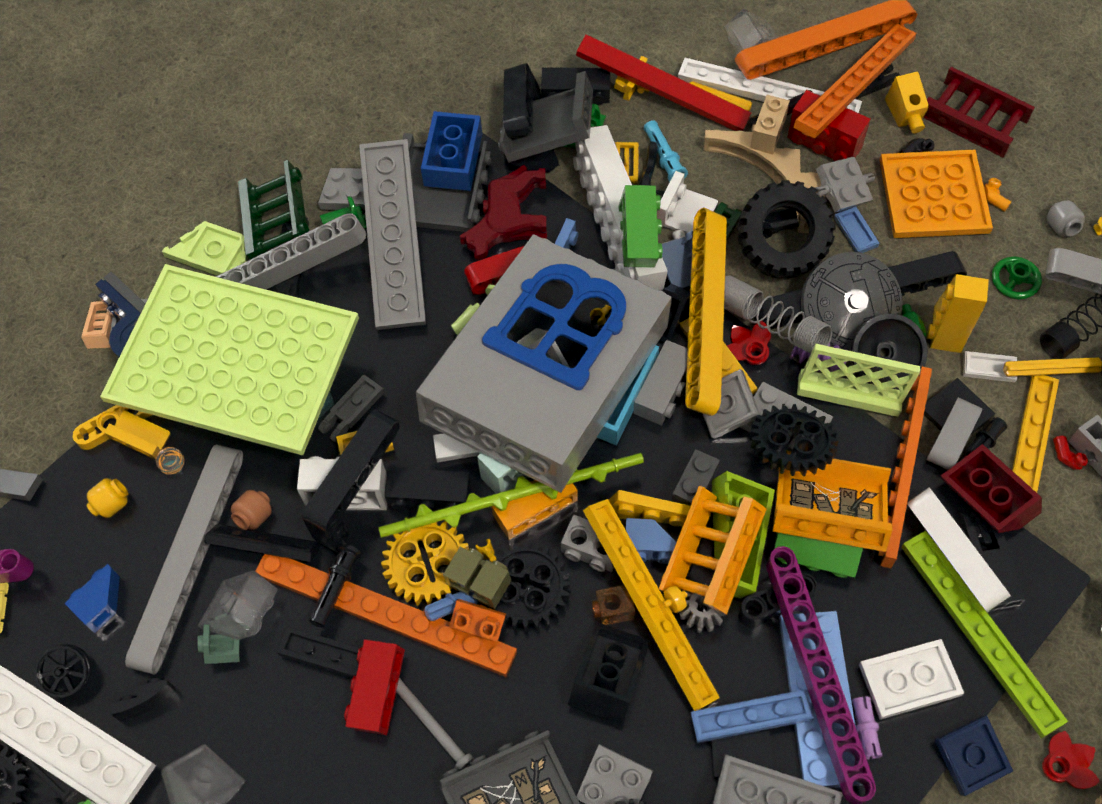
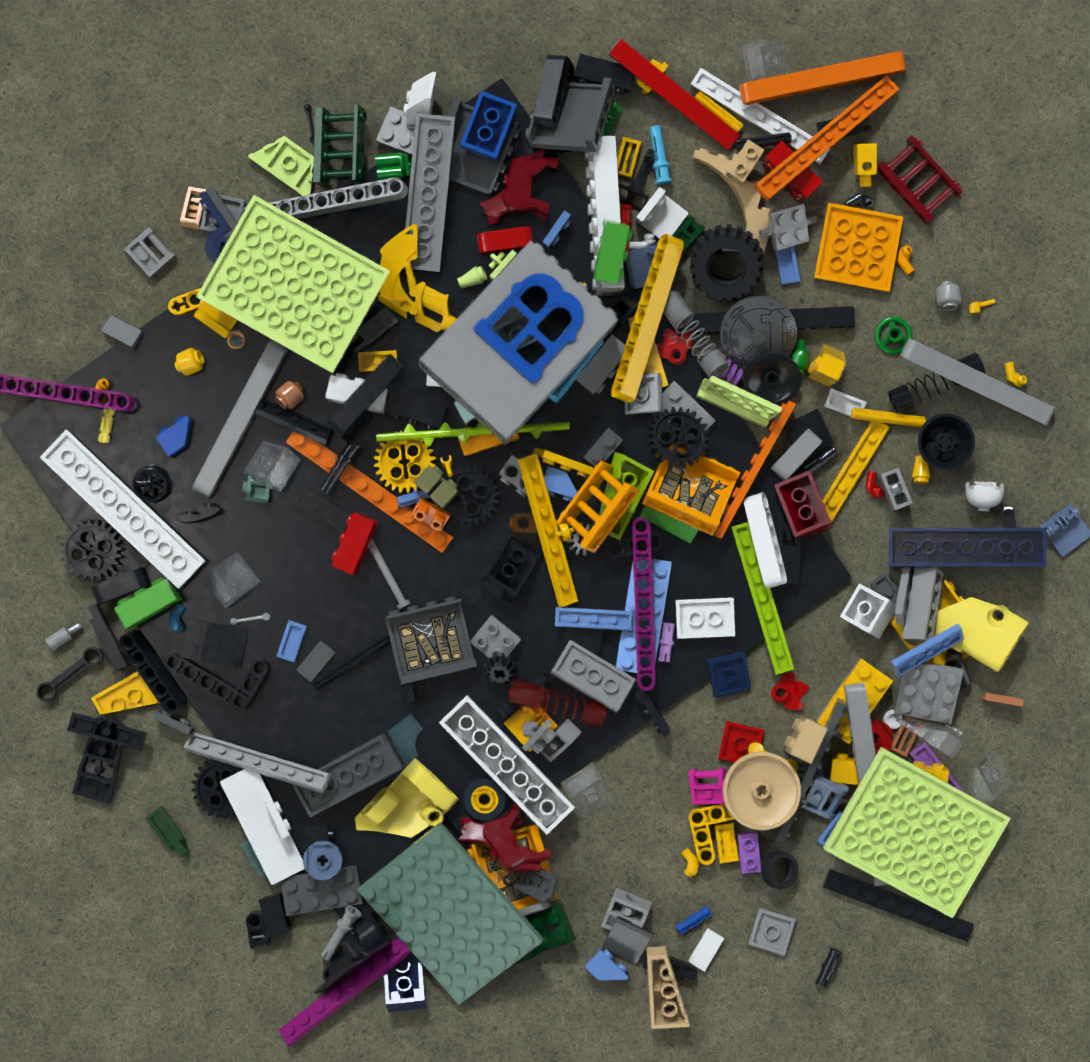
camera: 10 degrees right, 25 degrees up
(40, 390) = (145, 257): none -> light grey plate
(231, 192) = (307, 107): none -> black hinge
(366, 133) = (420, 98): none -> white slope
(372, 304) = (397, 255): none -> yellow piece

